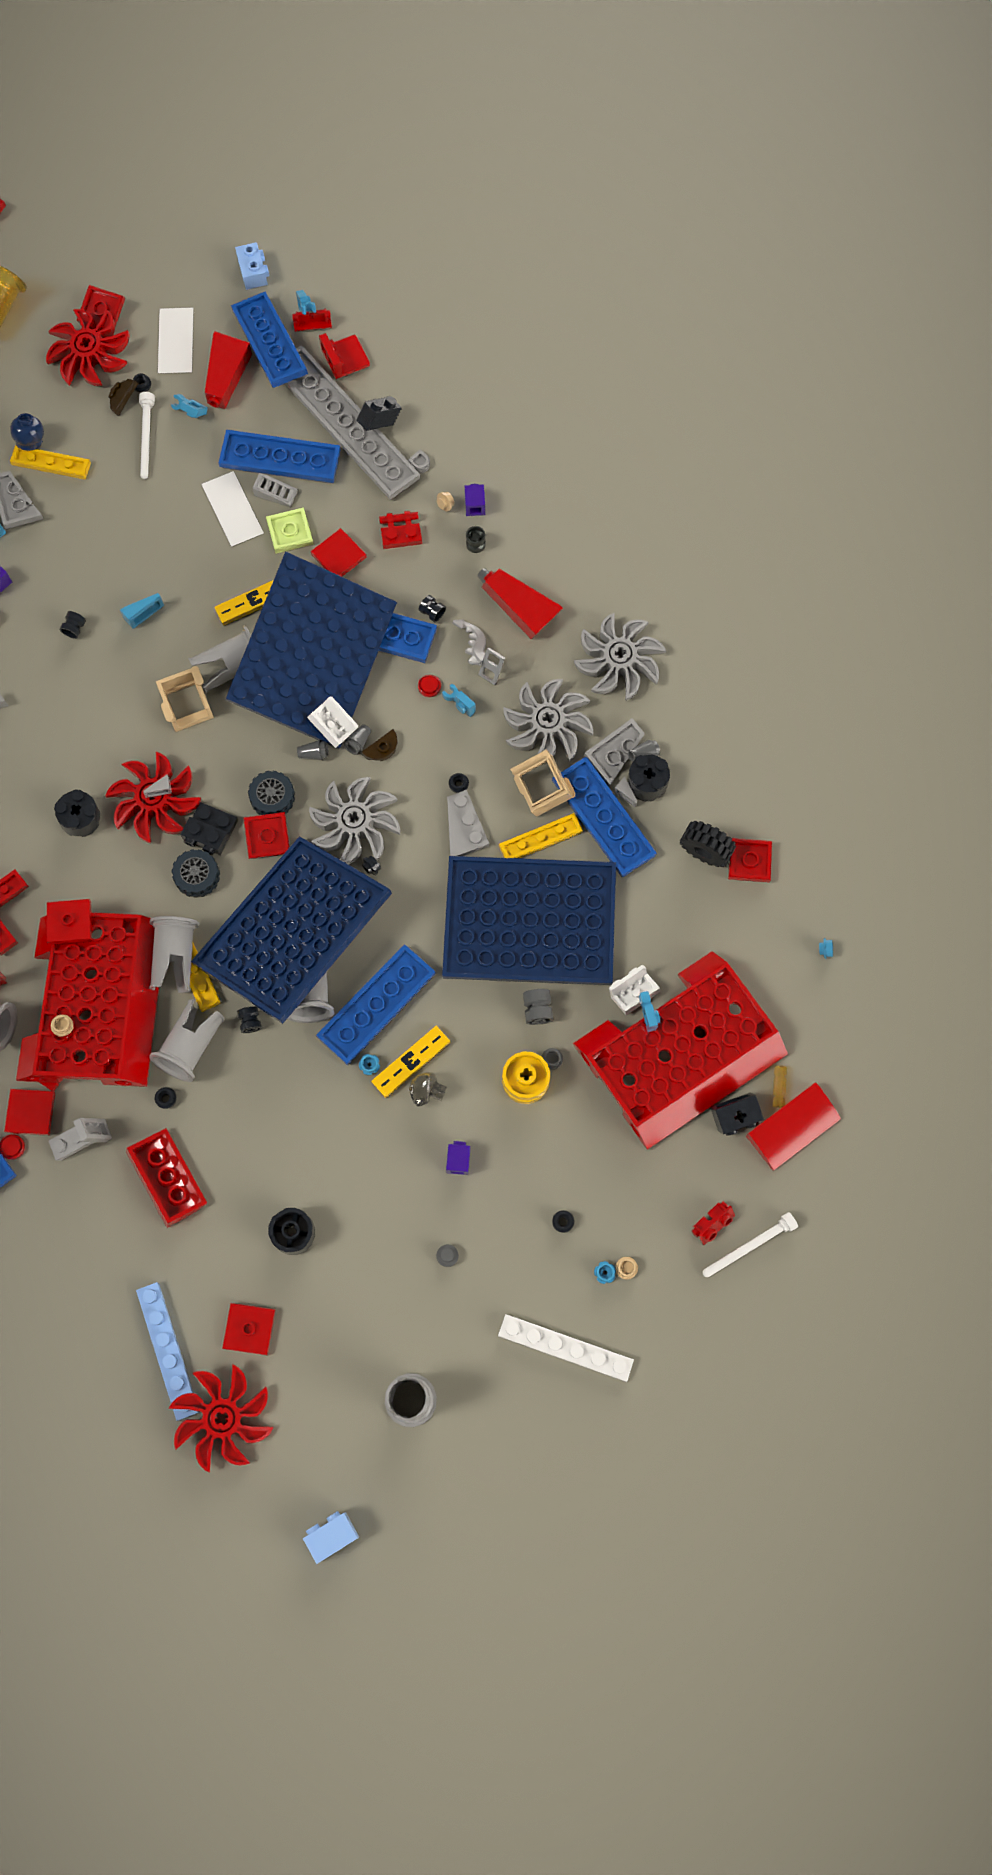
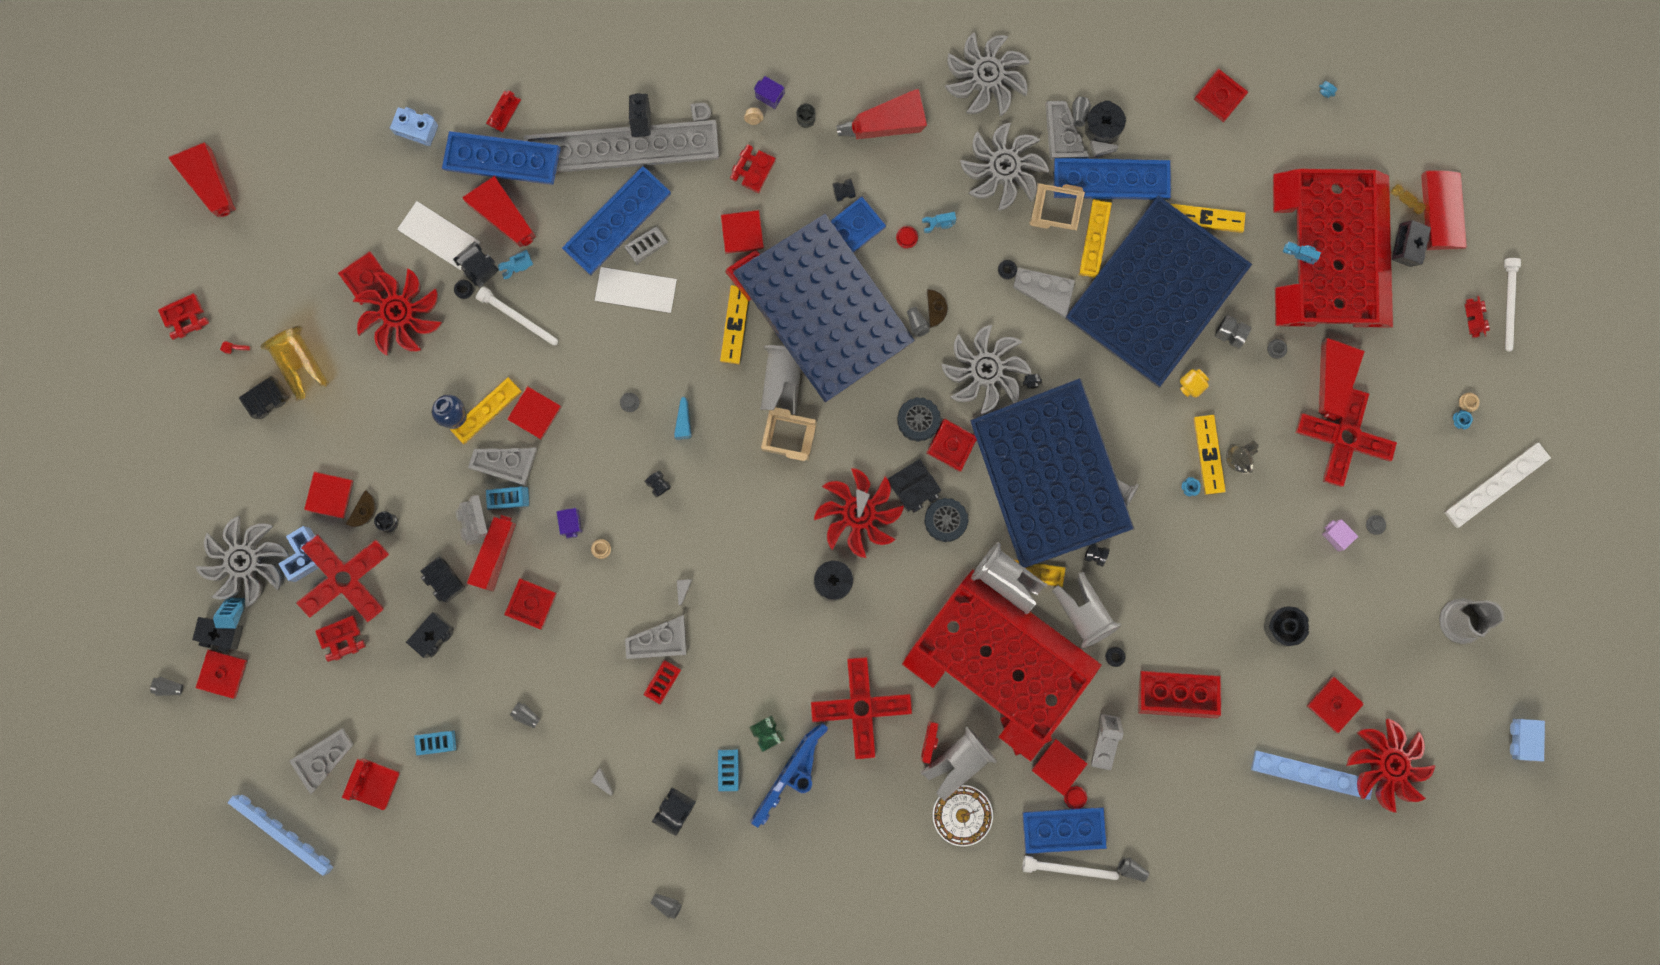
camera: 55 degrees left, 10 degrees up
(62, 1025) = (1019, 698): tan plate -> none
(69, 921) = (931, 641): red plate -> none
(71, 496) = (534, 413): none -> red tile
(103, 153) = (203, 175): none -> red slope
(120, 394) = (463, 313): dark brown plate -> none
(130, 561) = (629, 402): none -> dark grey plate
(165, 375) = (476, 265): none -> black brick
(289, 530) = (690, 256): yellowish green tile -> none
(304, 302) = (486, 107): dark azure plate -> none
(316, 750) = (903, 363): dark grey cone -> none
(333, 722) = (898, 331): white bracket -> none
(343, 355) = (557, 107): red bracket -> none
(375, 1004) = (1148, 451): blue plate -> none
(413, 1226) = (1339, 534): none -> lavender brick
(458, 1158) = (1310, 468): dark purple brick -> none
(466, 1003) = (1194, 383): none -> yellow head
(477, 652) = (900, 175): light grey piece -> none
(516, 1190) = (1341, 451): none -> red piece
(528, 1065) = (1272, 374): yellow wheel -> none
(563, 1128) = (1337, 376): none -> red slope
(563, 1214) = (1410, 424): black plate -> none
(628, 989) = (1267, 252): white bracket -> none
(632, 925) = (1214, 218): none -> yellow tile
(707, 843) = (1194, 117): black tyre -> none

